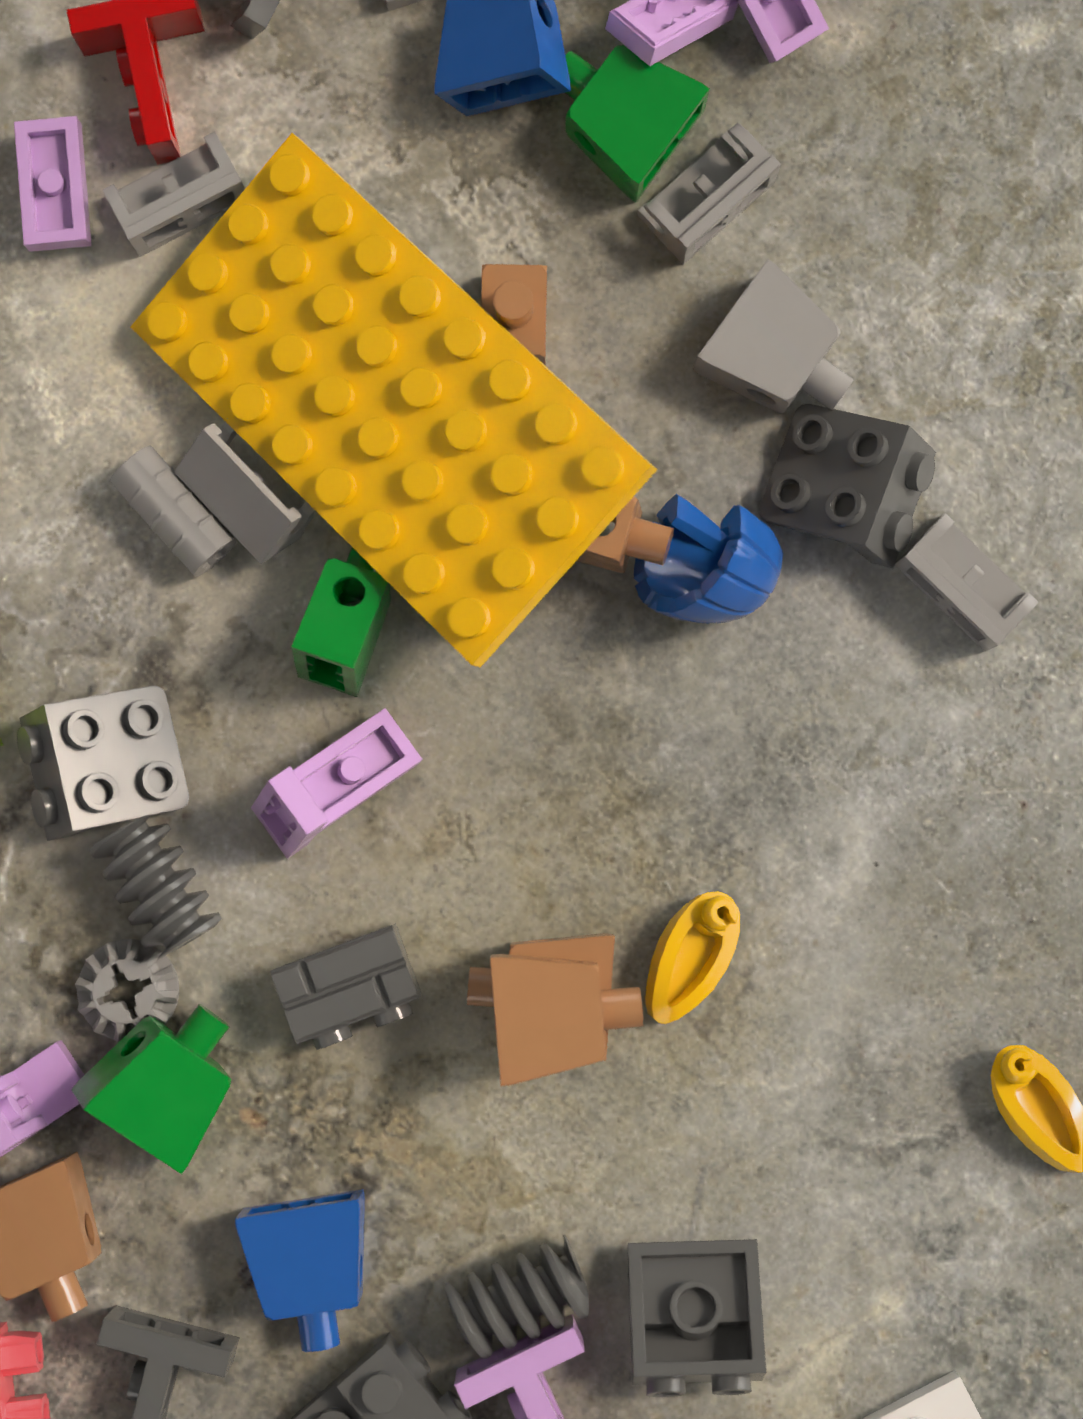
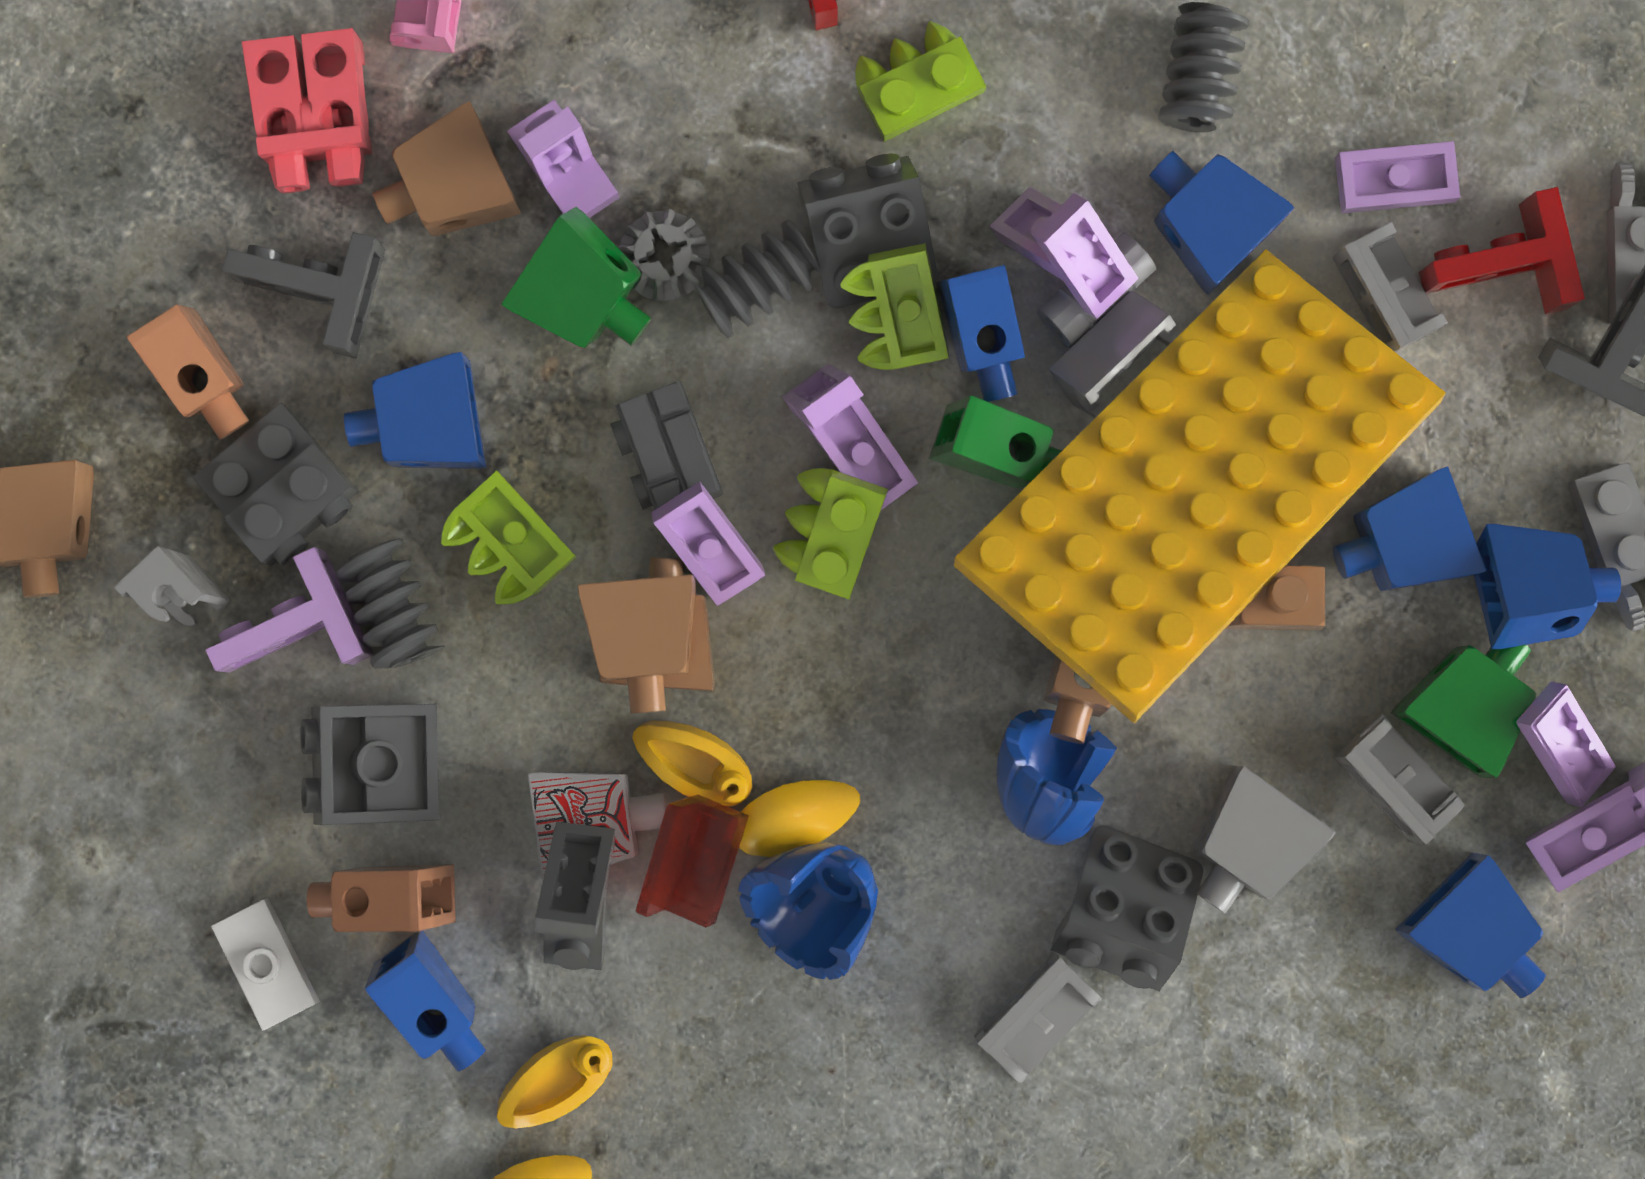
camera: 90 degrees right, 0 degrees up
(92, 380) = (1215, 215): none -> blue torso
(123, 538) = (1068, 244): none -> lavender bracket
(189, 648) = (978, 302): none -> blue torso
(193, 723) = (903, 309): none -> lime plate
(436, 797) = (835, 529): none -> lime plate
(442, 1163) = (509, 537): none -> lime plate
(447, 173) = (1413, 537): none -> blue torso
(451, 940) = (708, 543): none -> lavender plate
(752, 845) = (797, 816): none -> yellow arm
(757, 1072) = (592, 801): none -> light grey torso
(800, 956) = (692, 860): none -> clear red panel
(841, 1087) = (575, 896): none -> dark grey bracket
(845, 1298) = (386, 898): none -> nougat torso
(850, 824) = (812, 906): none -> blue hair
(867, 113) = (1478, 928): none -> blue torso
(956, 1254) = (417, 980): none -> blue torso

